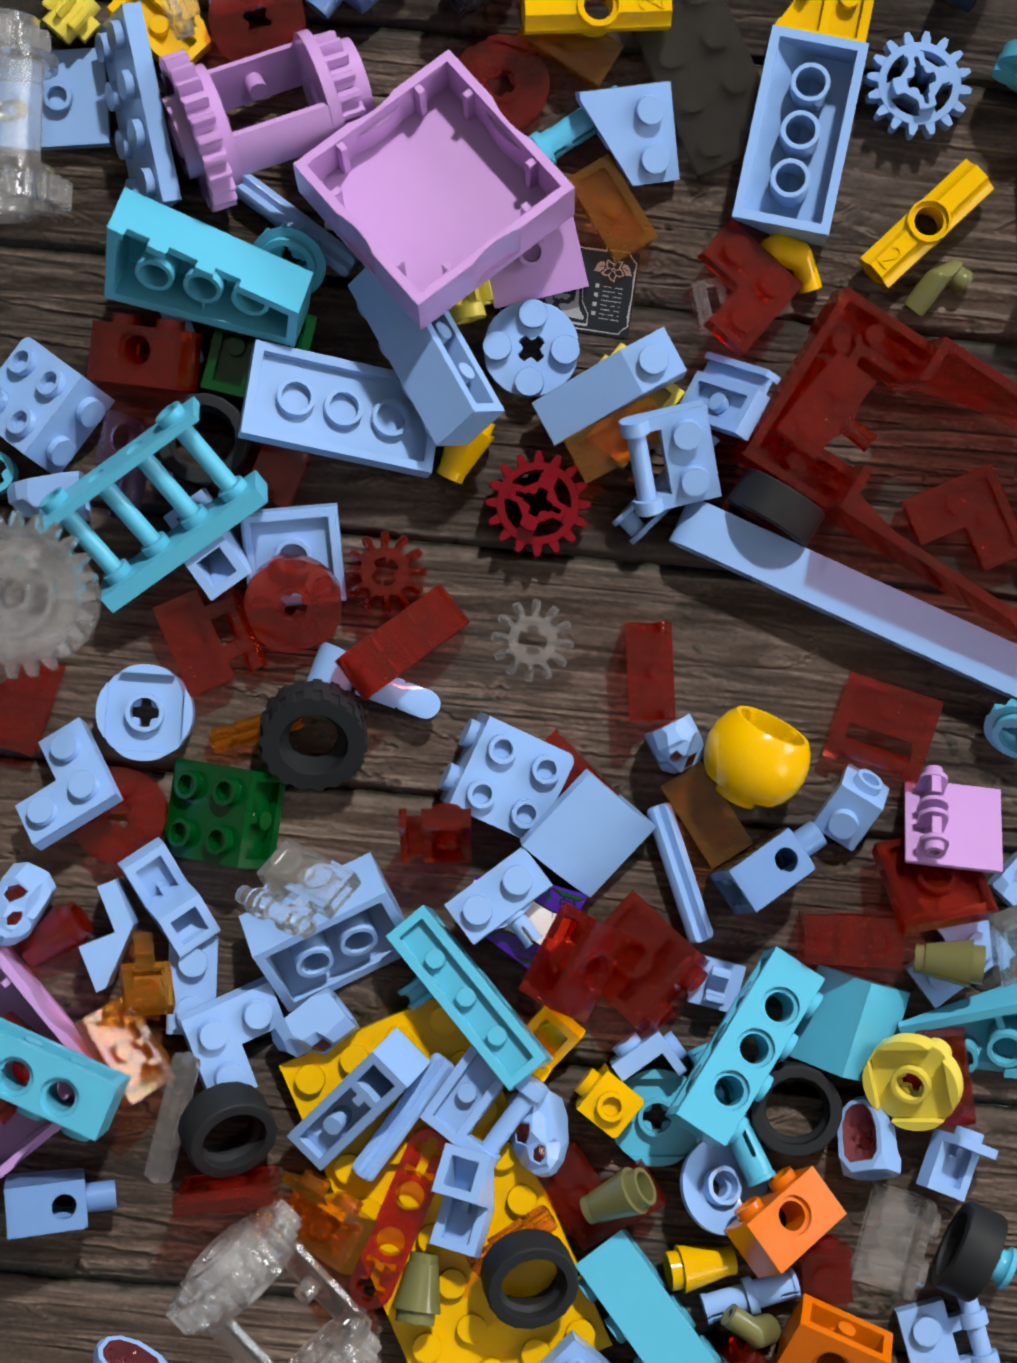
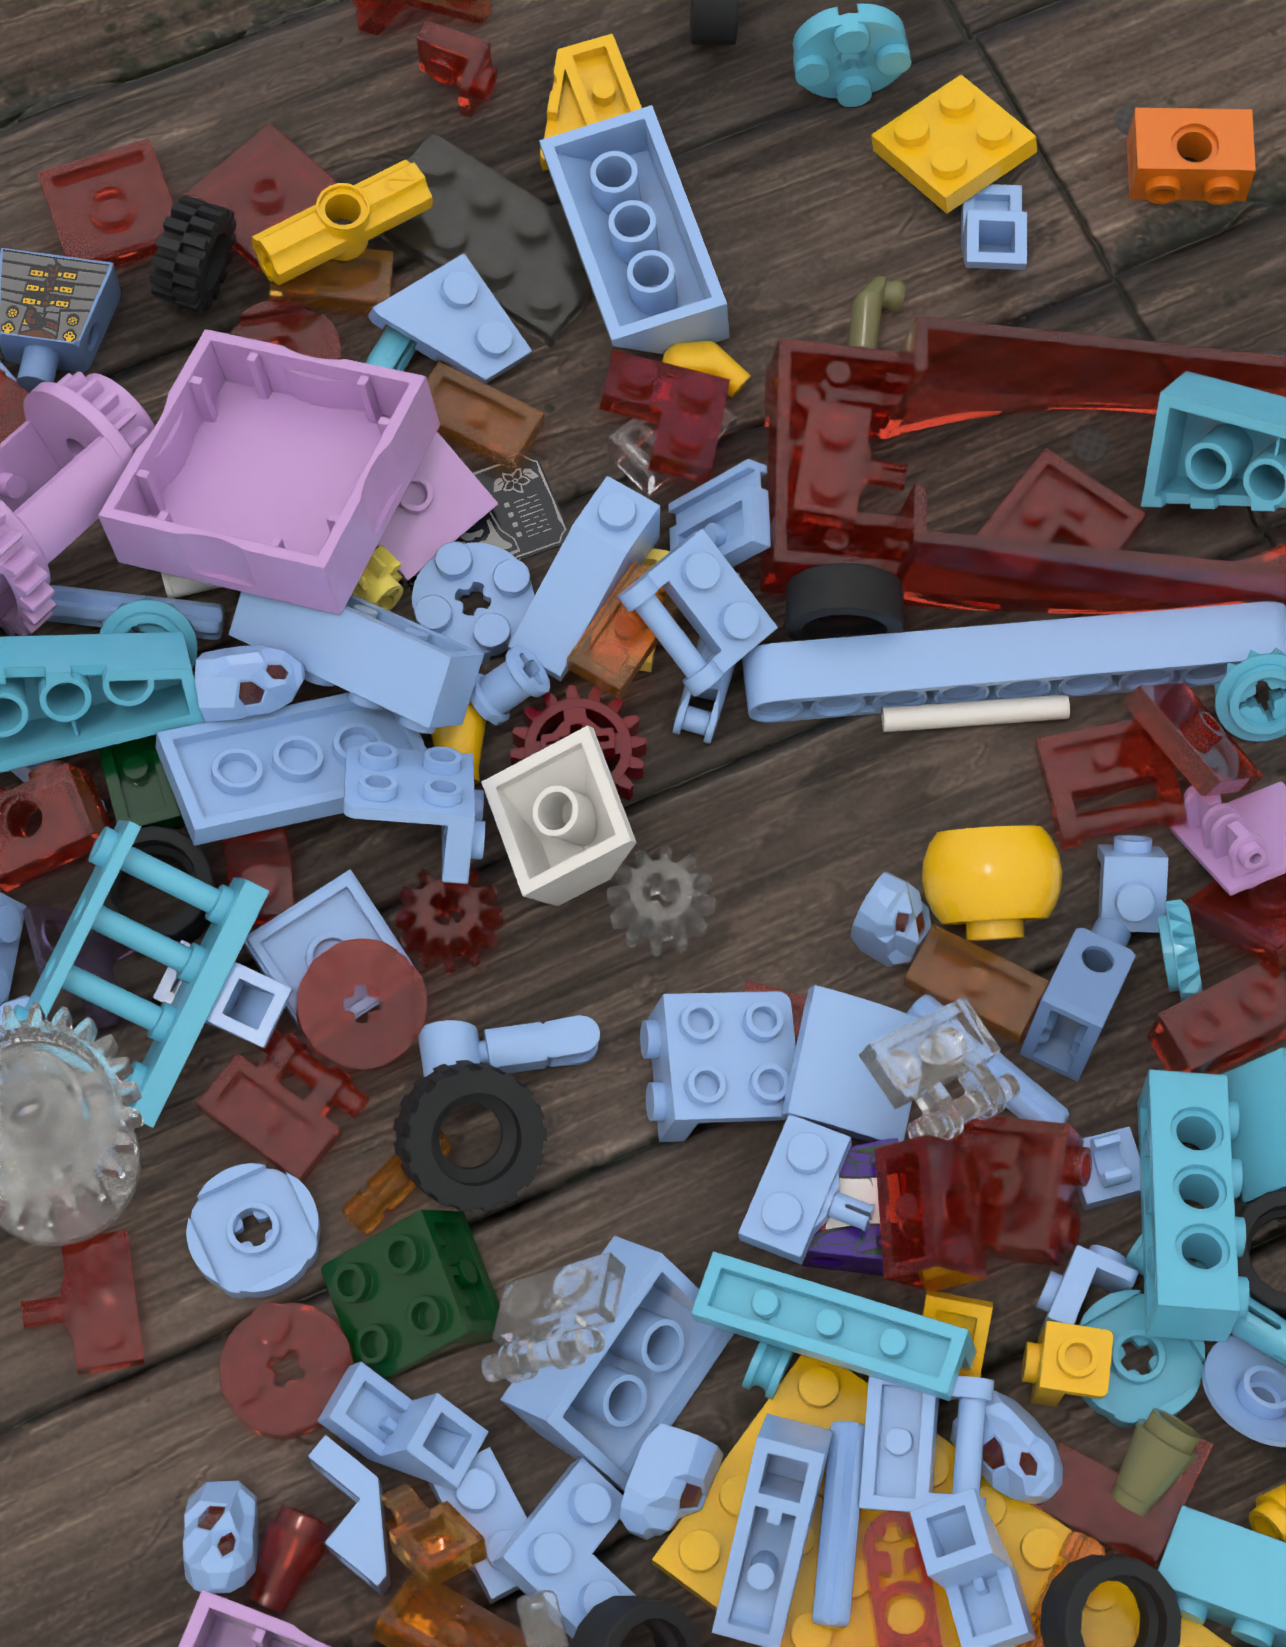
camera: 30 degrees left, 20 degrees down
(81, 787) = (223, 1360): light blue plate -> none
(336, 333) = (246, 681): none -> light blue rock
(402, 642) = (512, 975): clear red beam -> none
(405, 484) = (421, 789): none -> light blue bracket
(437, 835) = (681, 1166): clear red plate -> none
(491, 553) = (561, 819): none -> white slope
(517, 433) = (509, 685): none -> light blue bush
(640, 856) = (932, 1052): none -> clear plate
(649, 671) = (809, 864): clear red hinge -> none
(824, 624) = (975, 713): none -> white piece
(850, 875) = (1179, 950): none -> medium azure gear
(937, 79) = (727, 135): light blue gear -> none
(946, 204) = (829, 232): yellow piece -> none
(953, 737) = (1193, 739): none -> clear red plate

